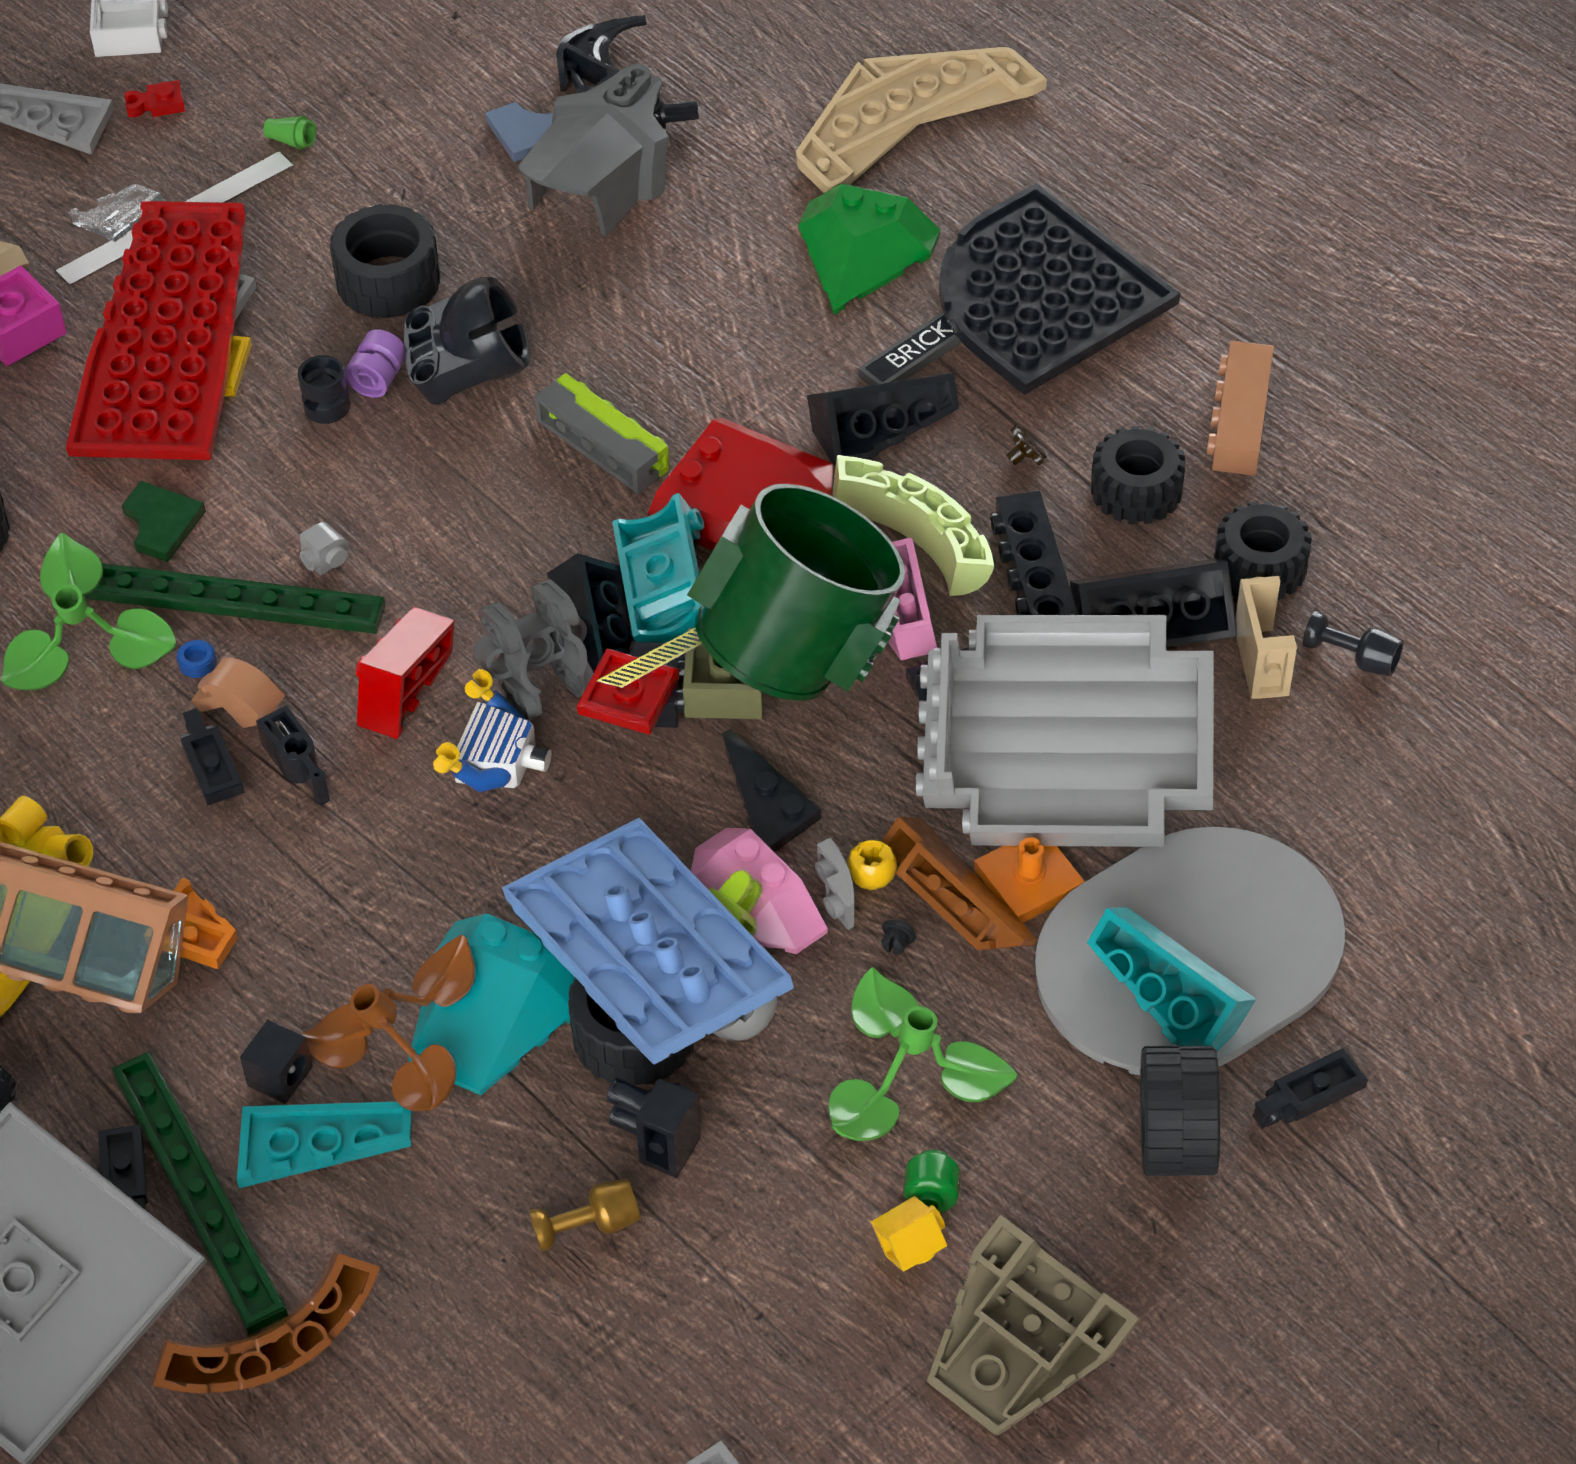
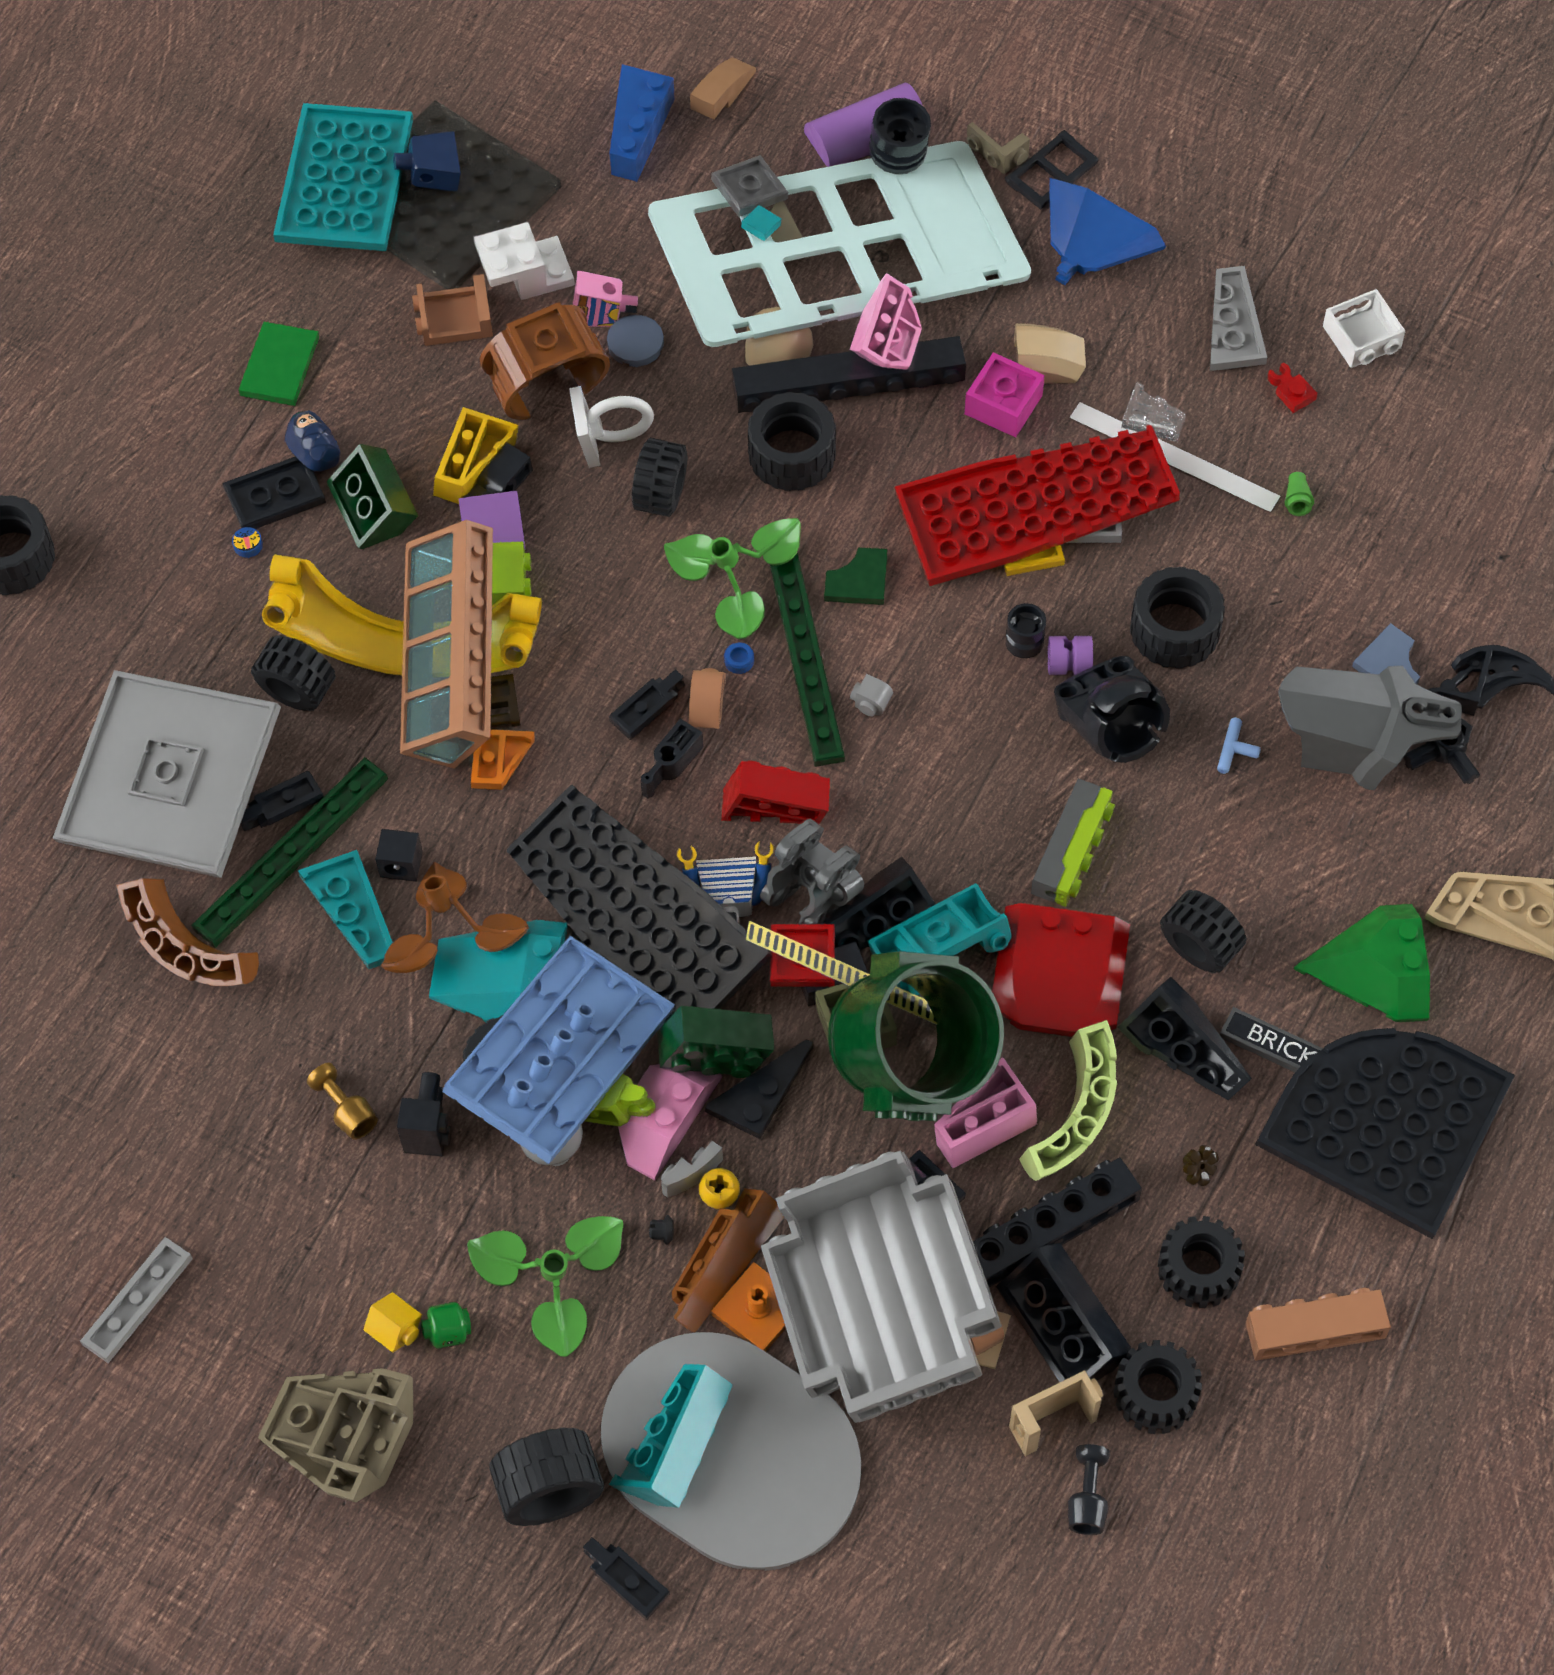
camera: 70 degrees right, 10 degrees up
(469, 836) = (635, 905): none -> black wing
(556, 277) = (1233, 746): none -> light blue piece
(703, 795) = (715, 1041): none -> dark green brick
(772, 348) = (1203, 931): none -> black tyre

